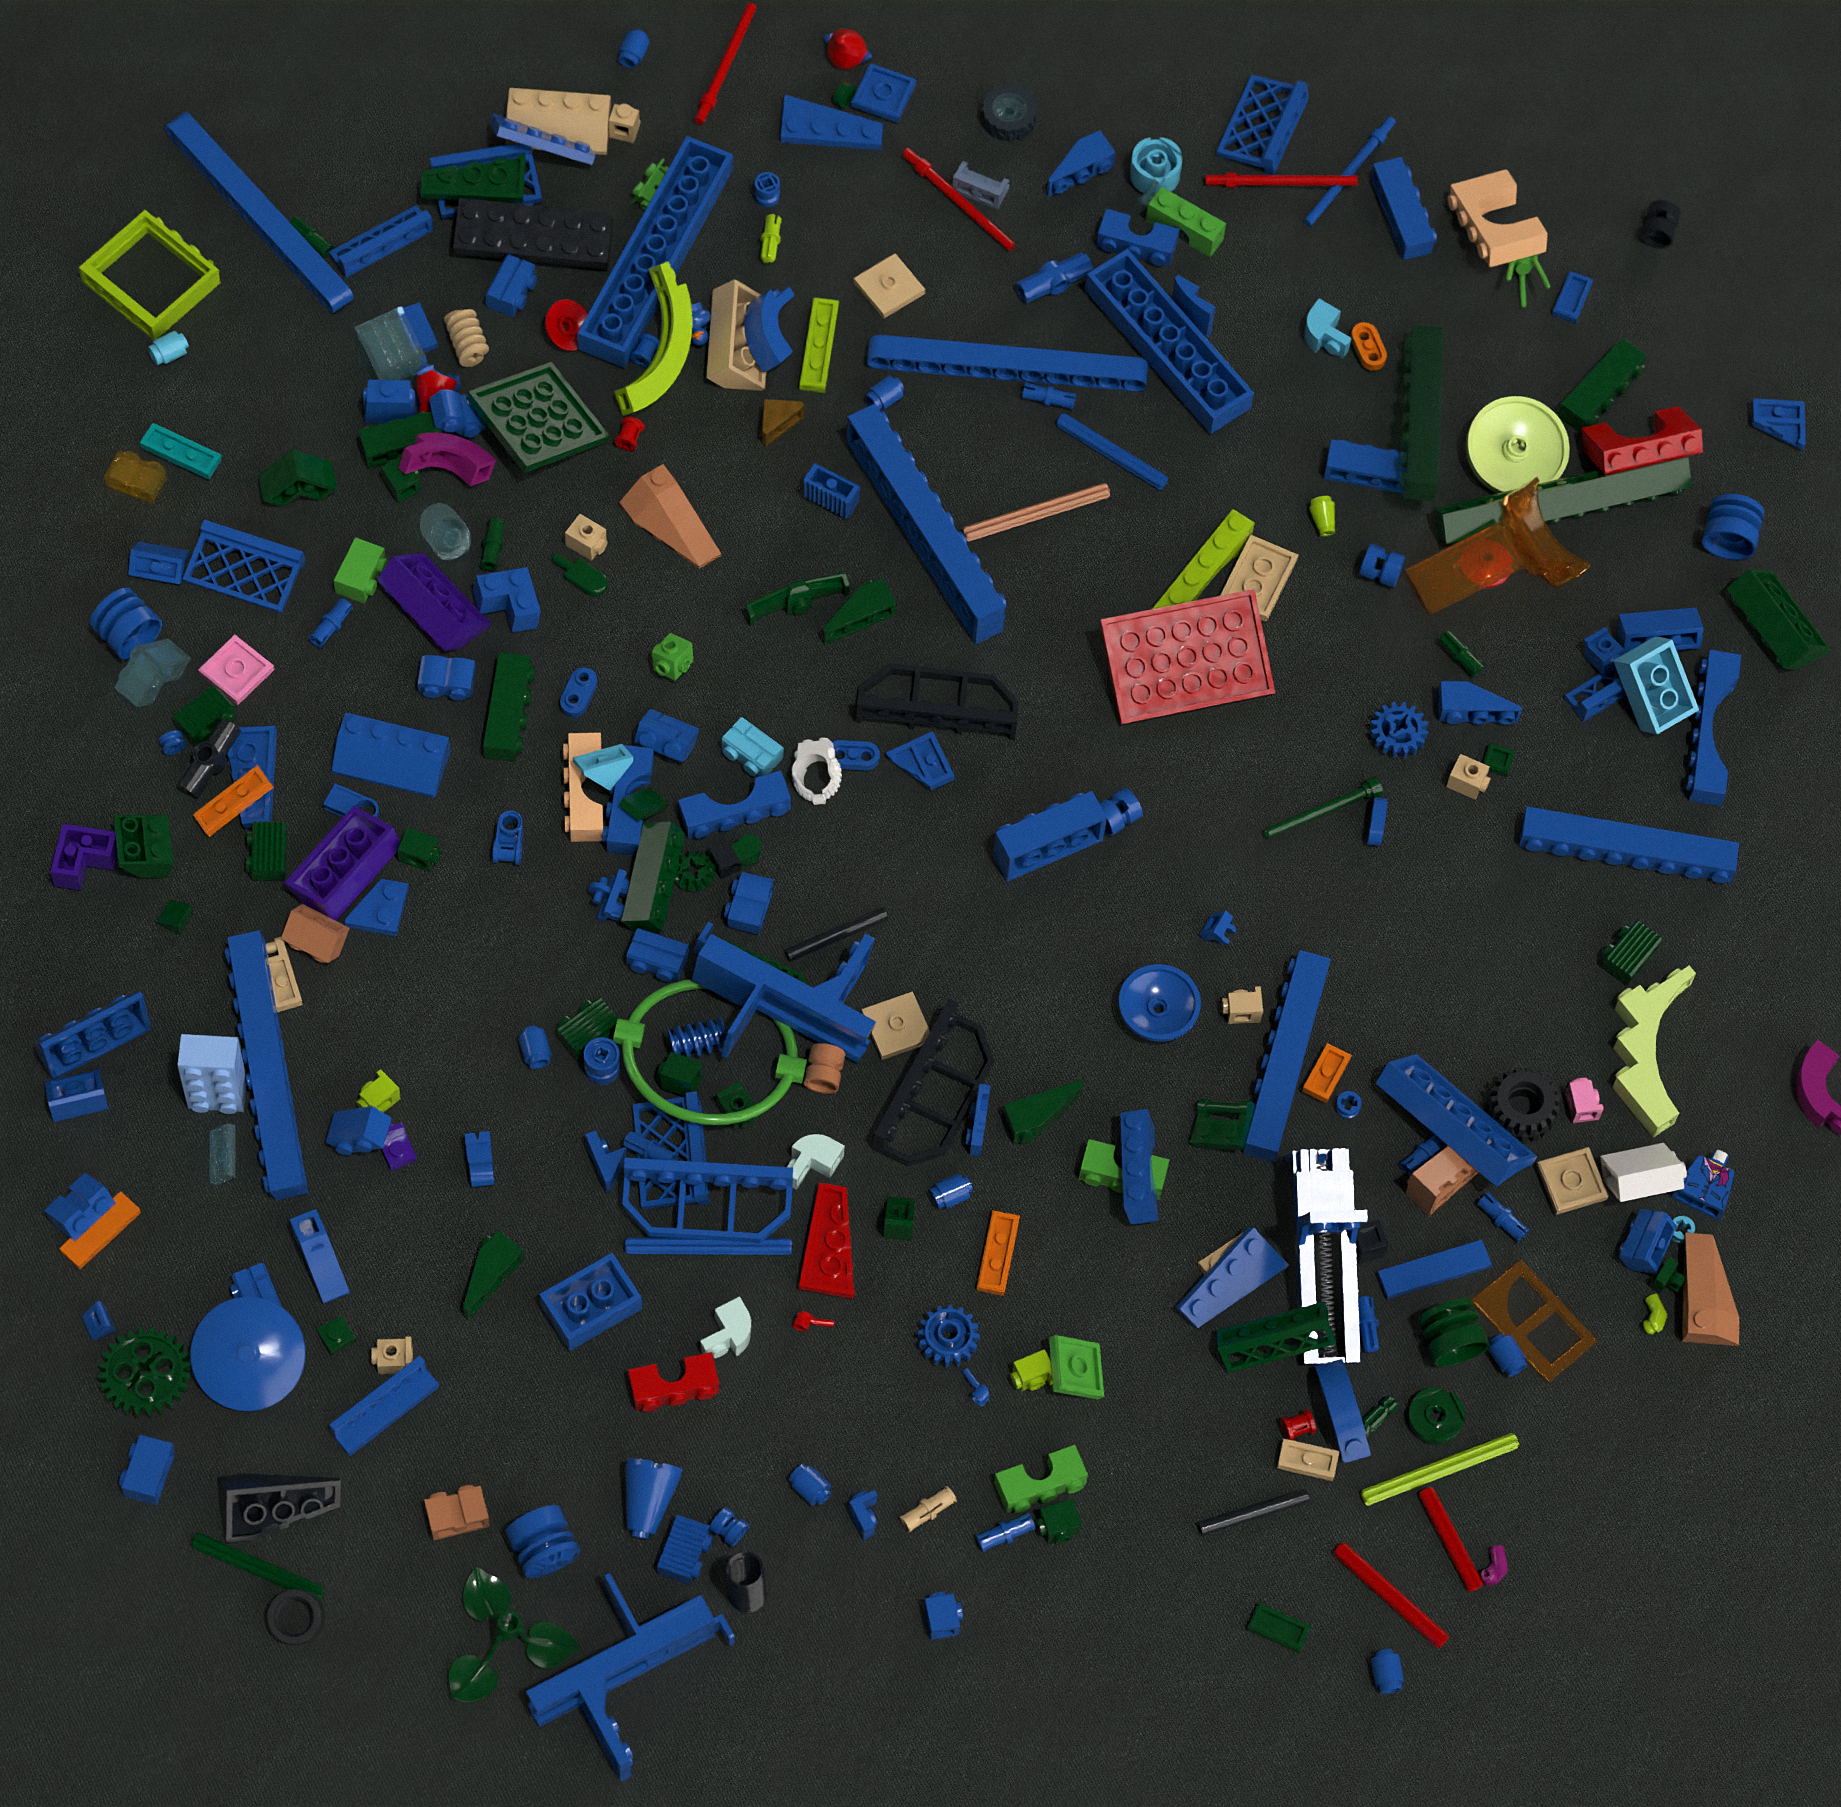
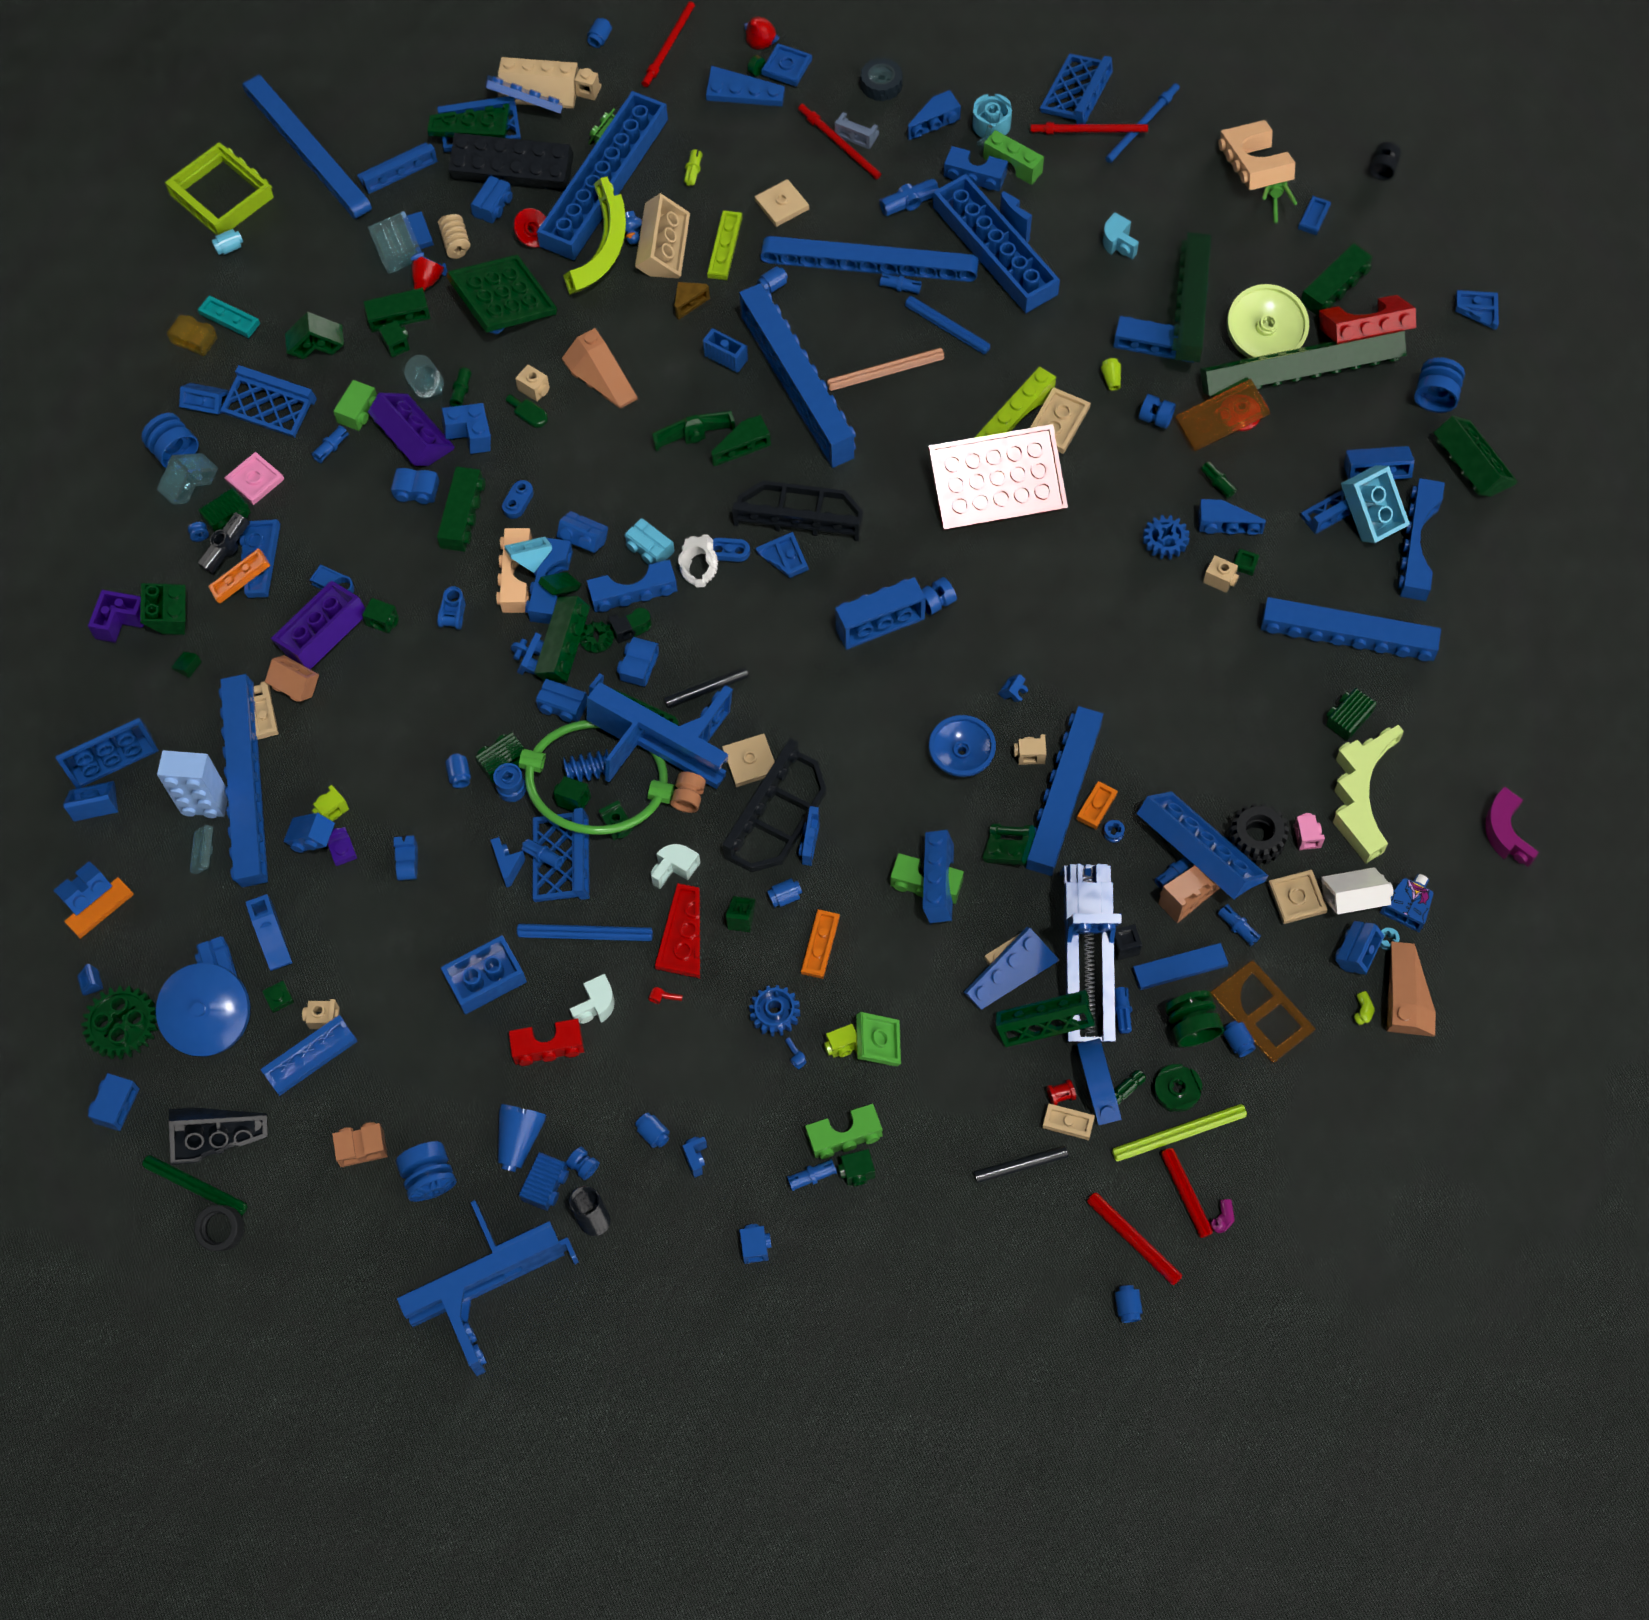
camera: 10 degrees right, 0 degrees up
(268, 851) = (263, 614): dark green brick -> none
(312, 236) = (345, 164): dark green axle -> none
(380, 908) = (347, 661): blue wing -> none
(388, 400) = (389, 279): blue torso -> none
(390, 755) = (366, 543): blue slope -> none
(448, 452) = (430, 318): magenta arch -> none
(455, 413) = (437, 289): blue brick -> none
(487, 1597) = (381, 1215): dark green plant -> none
(493, 1266) = (408, 944): dark green slope -> none
(629, 434) = (572, 308): red bush -> none
(645, 350) = (590, 247): blue bush -> none
(672, 656) = (592, 472): bright green brick -> none
(697, 1172) = (595, 874): blue plate -> none
(763, 331) = (680, 231): blue arch -> none
(767, 189) = (692, 132): blue wheel -> none
(928, 1509) = (748, 1153): tan pin -> none
(1034, 1114) = (856, 832): dark green slope -> none
(1279, 1628) = (1038, 1263): dark green tile -> none
(1368, 348) = (1152, 251): orange plate -> none
(1370, 789) = (1142, 583): dark green piece -> none
(1377, 821) = (1146, 606): blue beam -> none
(1403, 208) = (1183, 149): blue brick -> none
(1533, 539) = (1278, 393): clear orange windscreen -> none
(1601, 650) = (1330, 478): blue brick -> none
(1668, 1278) = (1376, 978): dark green tile -> none

